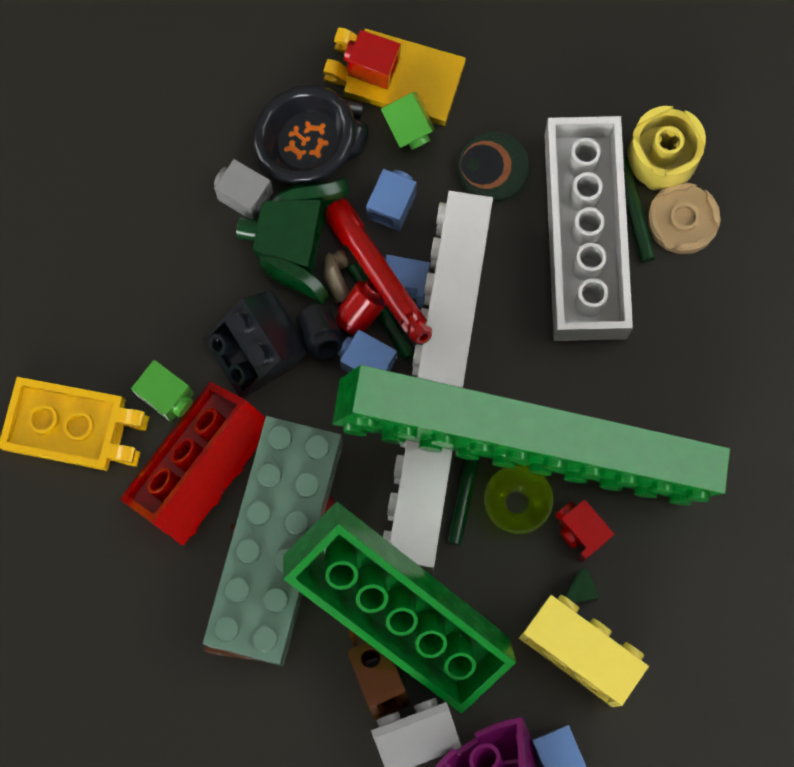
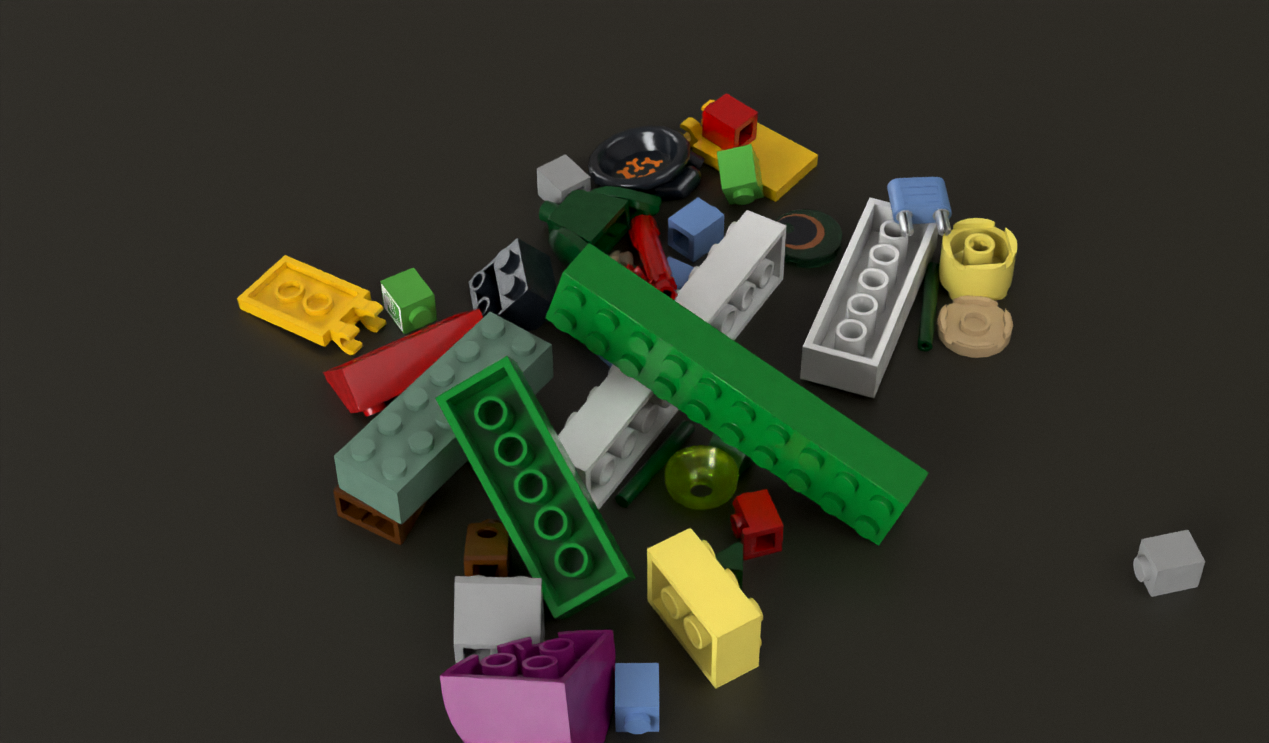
camera: 20 degrees right, 30 degrees down
(600, 113) = (920, 202): none -> medium blue piece

